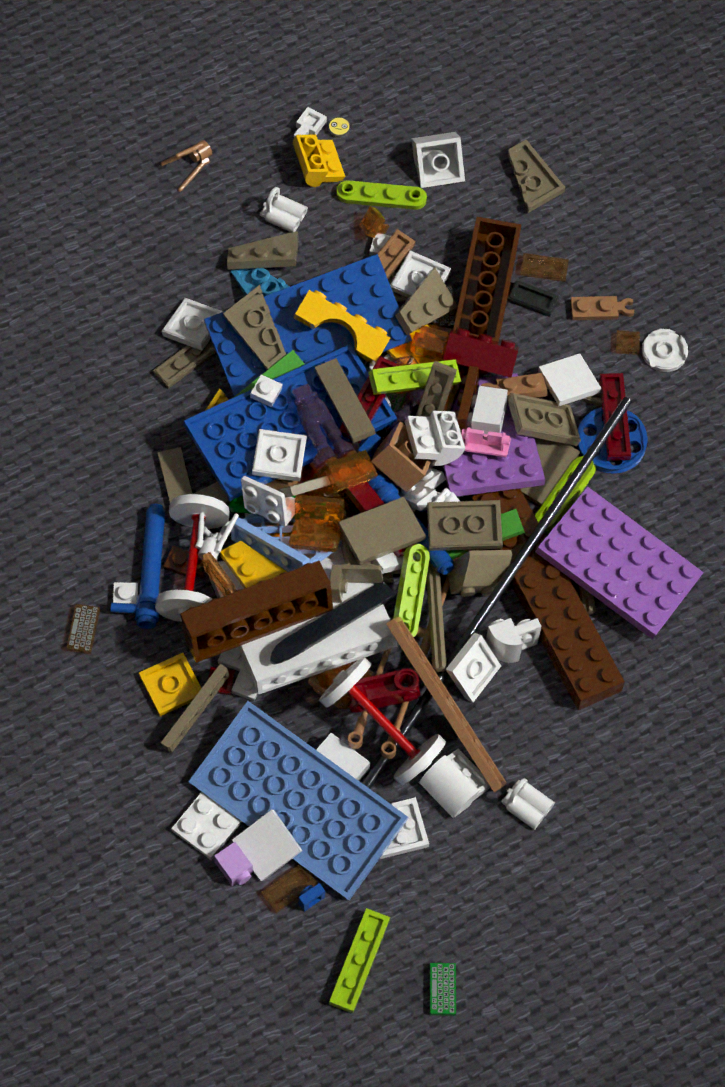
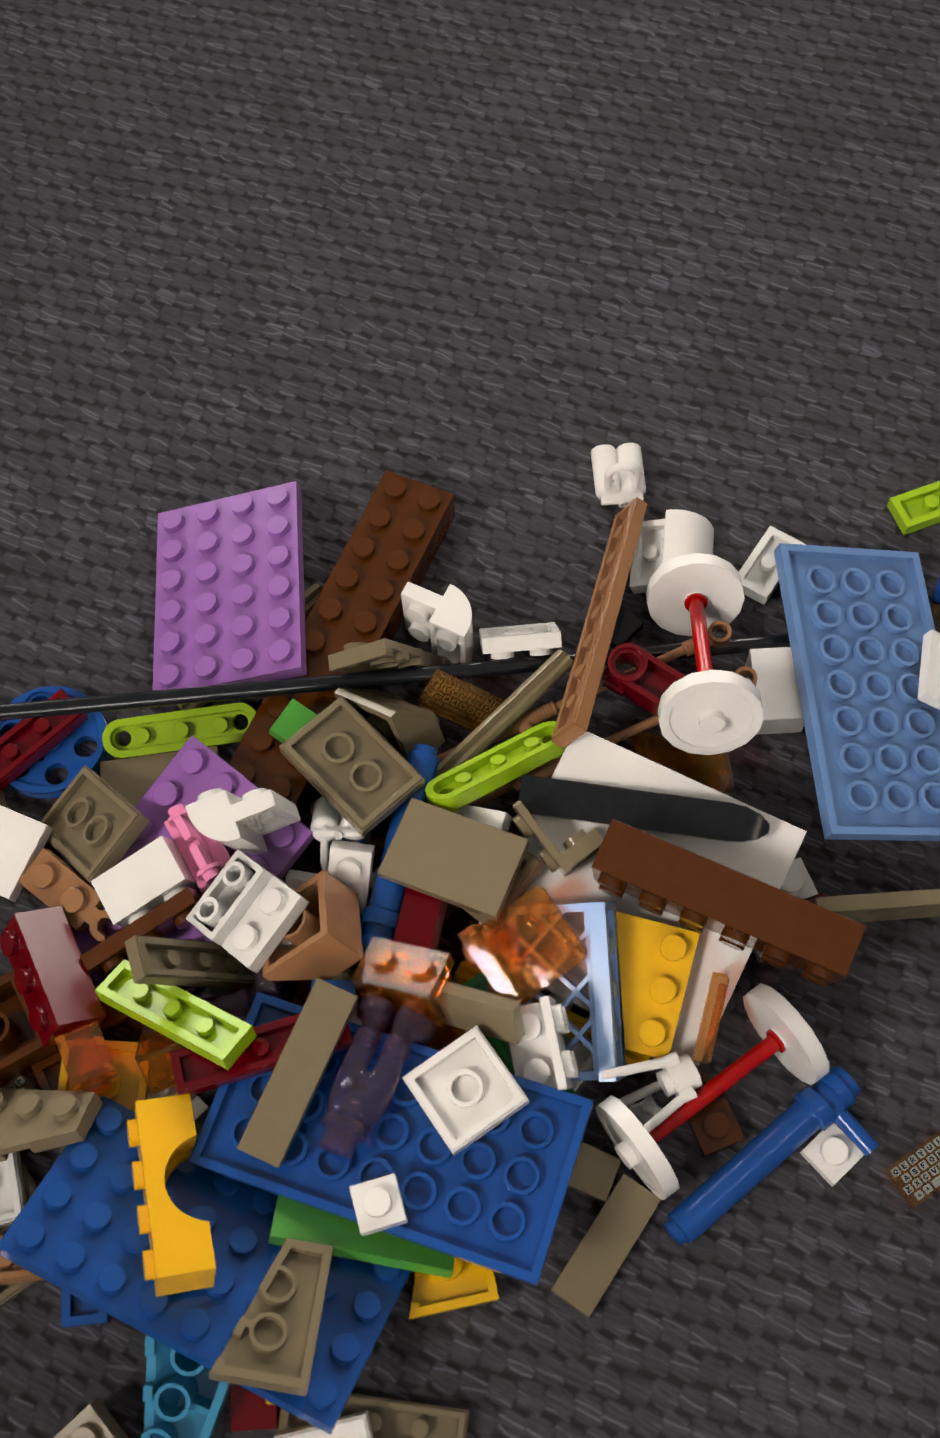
camera: 125 degrees left, 0 degrees up
(170, 684) = (887, 979): yellow tile -> none
(443, 989) = (899, 402): tile -> none
(463, 614) = (458, 700): none -> clear orange tile
(476, 454) = (241, 821): none -> white brick
(510, 586) = (379, 655): none -> dark tan wing

